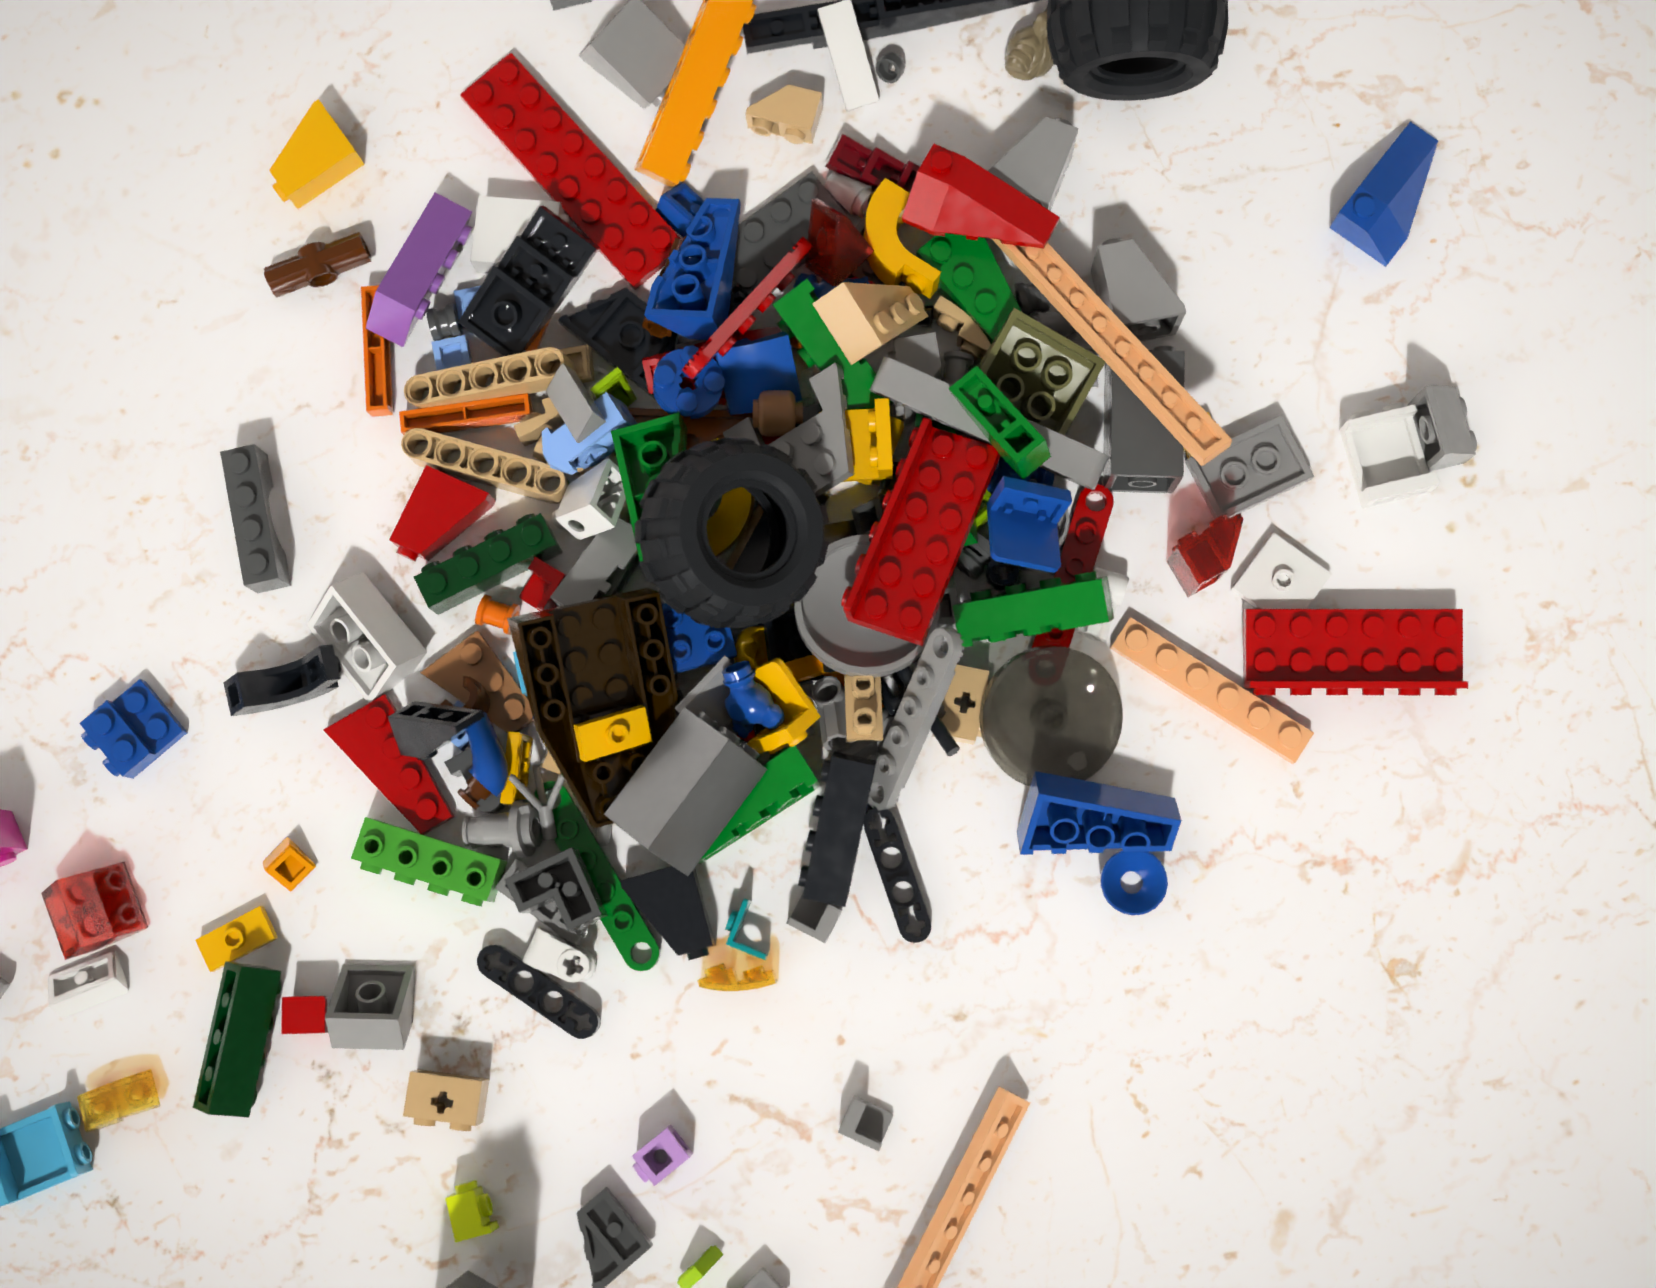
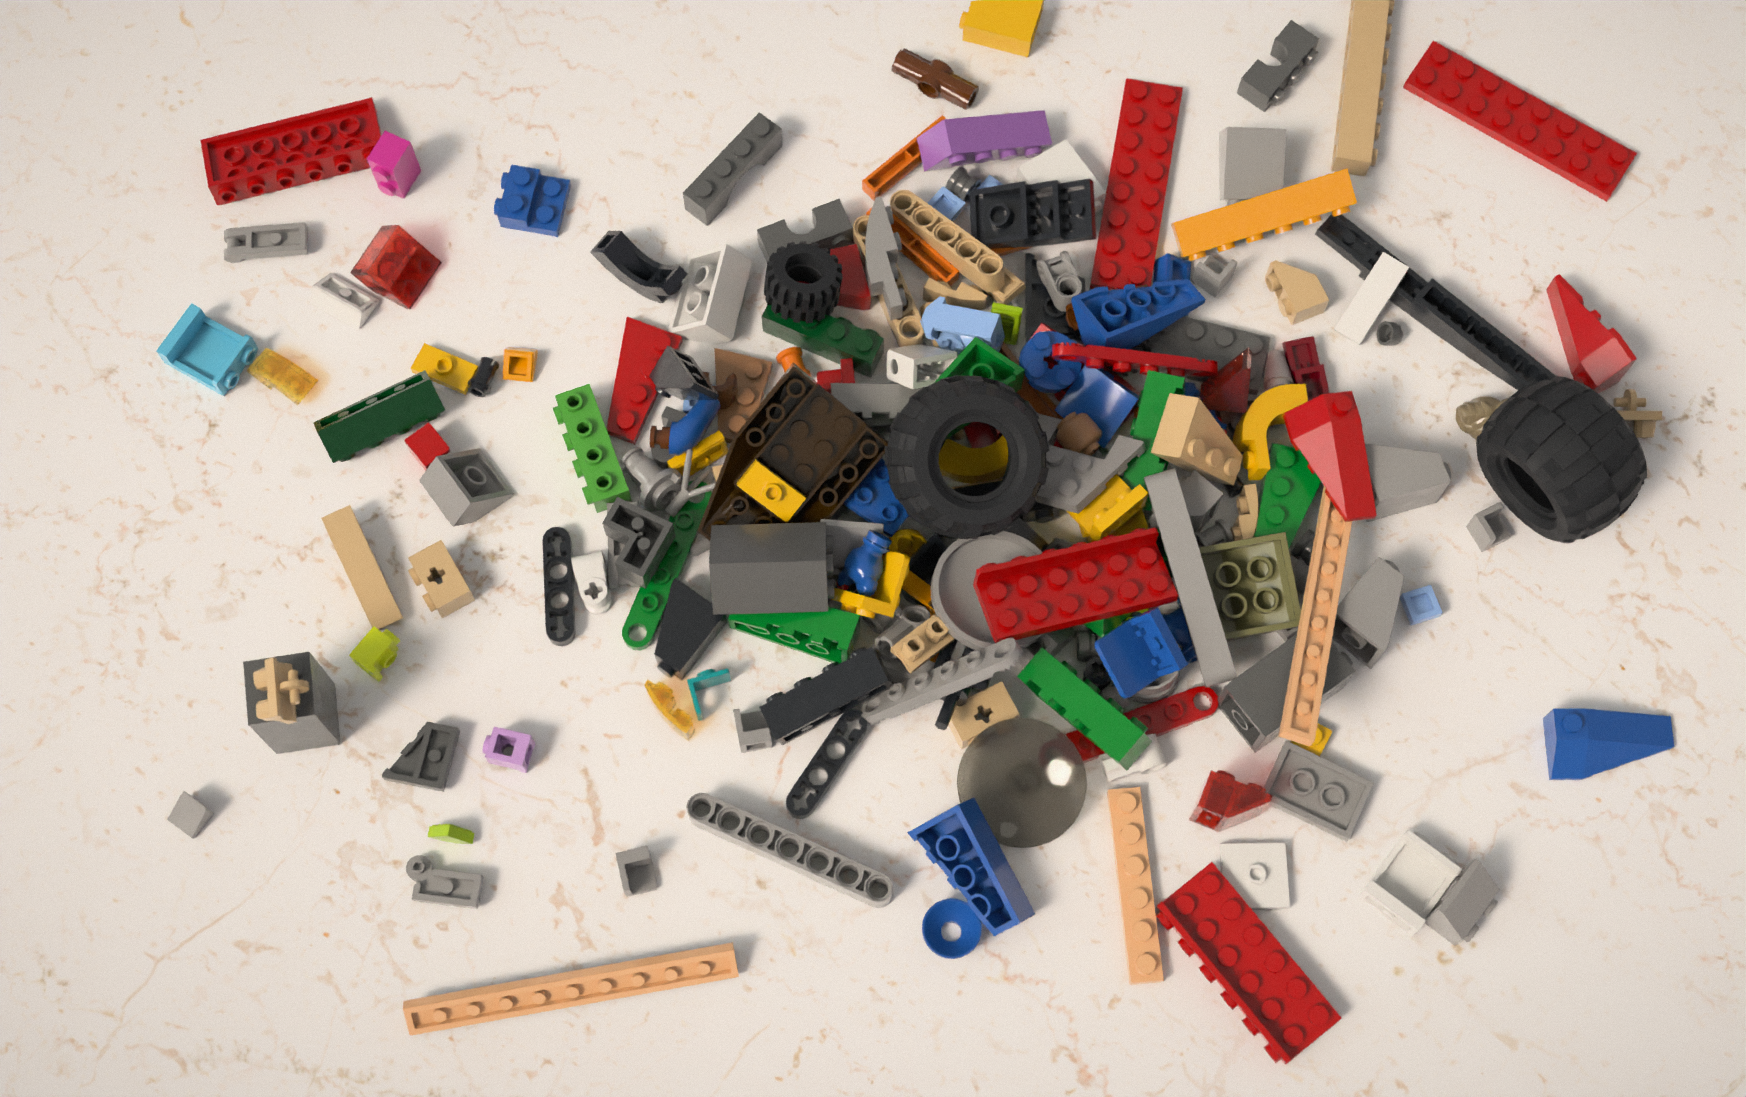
camera: 40 degrees right, 10 degrees down
(275, 909) = (480, 383): none -> black pin
(370, 533) = (830, 231): none -> dark grey arch
(375, 1164) = (361, 567): none -> tan slope
(413, 527) = (799, 299): none -> black tyre
(453, 448) = (881, 256): none -> light grey slope
(574, 403) = (975, 300): light grey slope -> none
(606, 308) = (1059, 276): none -> light grey piece
(713, 172) = (1213, 275): none -> light grey panel
(971, 969) = (778, 838): none -> light grey beam
(1001, 422) = (1193, 578): green slope -> none
(1133, 132) = (1488, 527): none -> light grey panel
(1157, 244) = (1420, 605): none -> light blue plate

